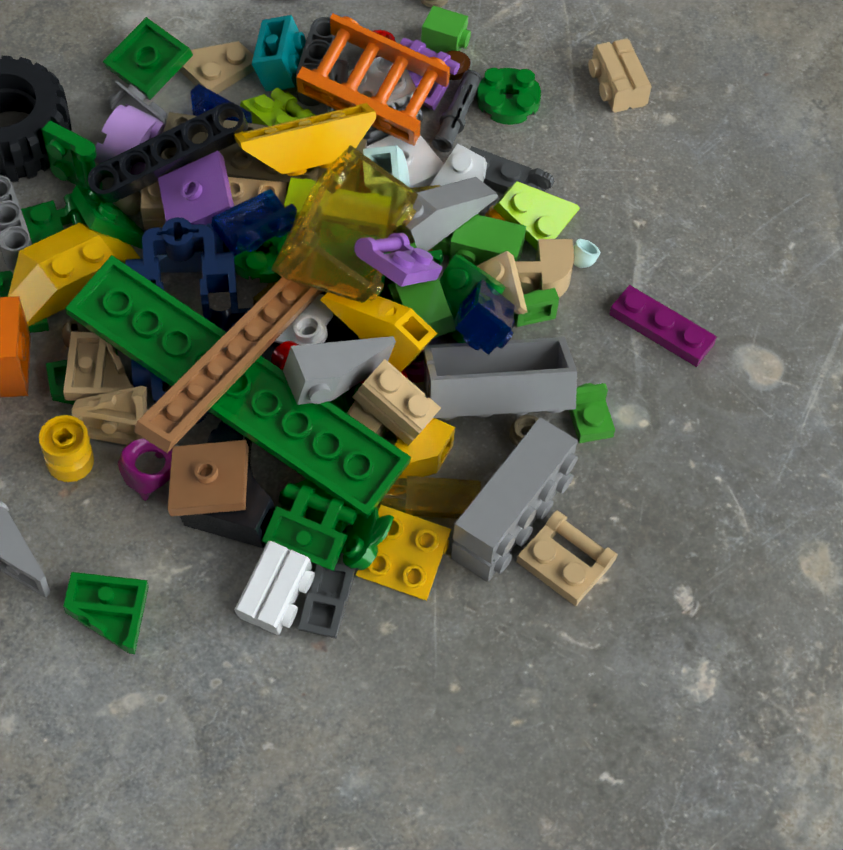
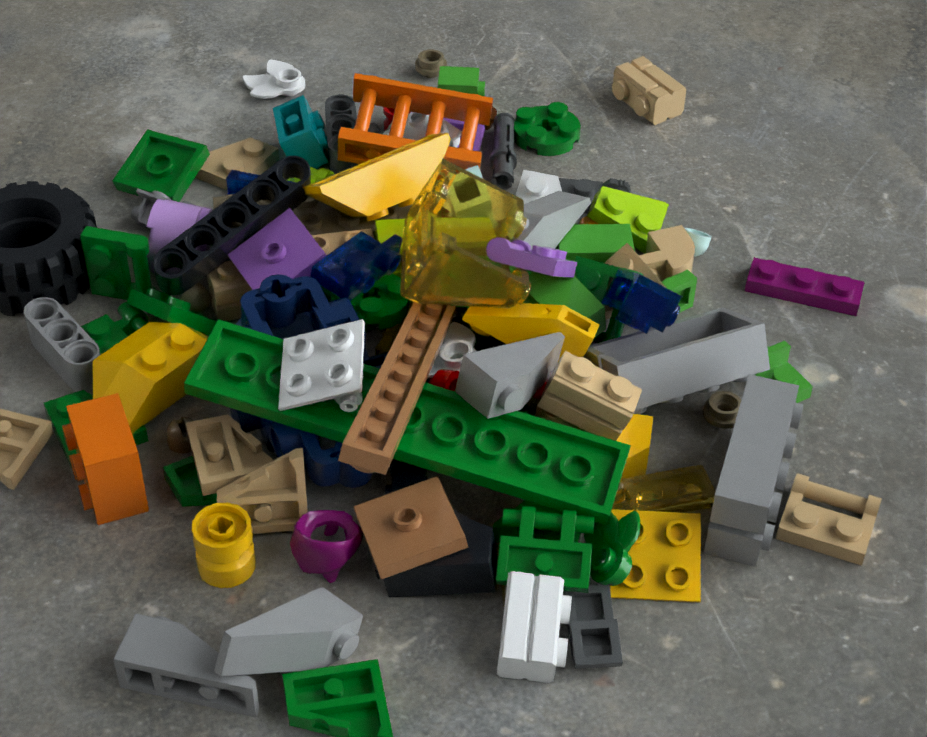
camera: 15 degrees left, 15 degrees down
(86, 546) = (292, 637): none -> light grey slope
(178, 324) = (323, 367): none -> white hinge

